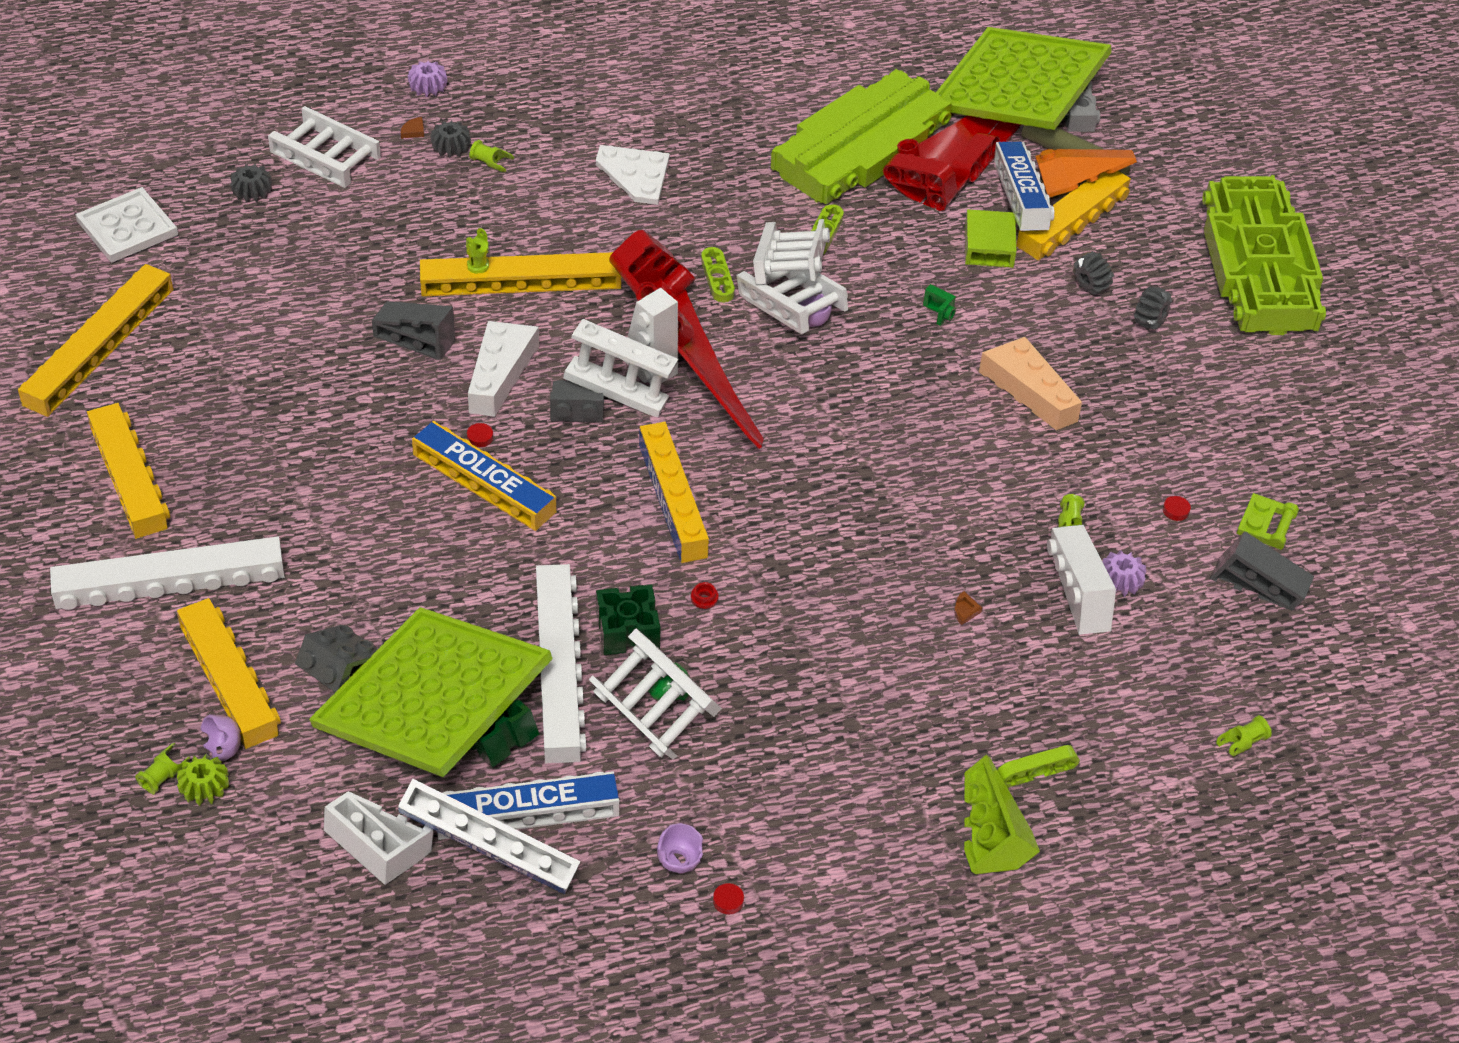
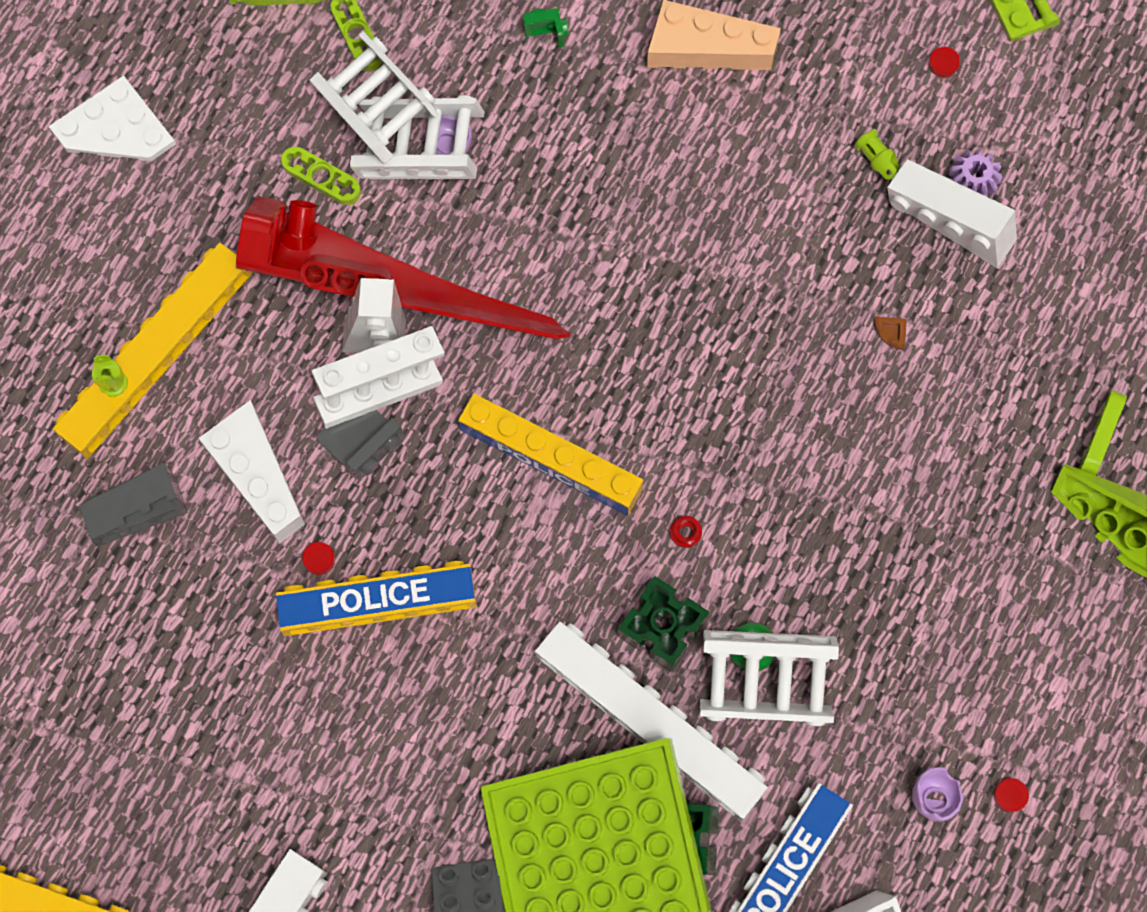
camera: 40 degrees left, 25 degrees up
(1264, 571) = (1078, 68): dark grey wedge -> none

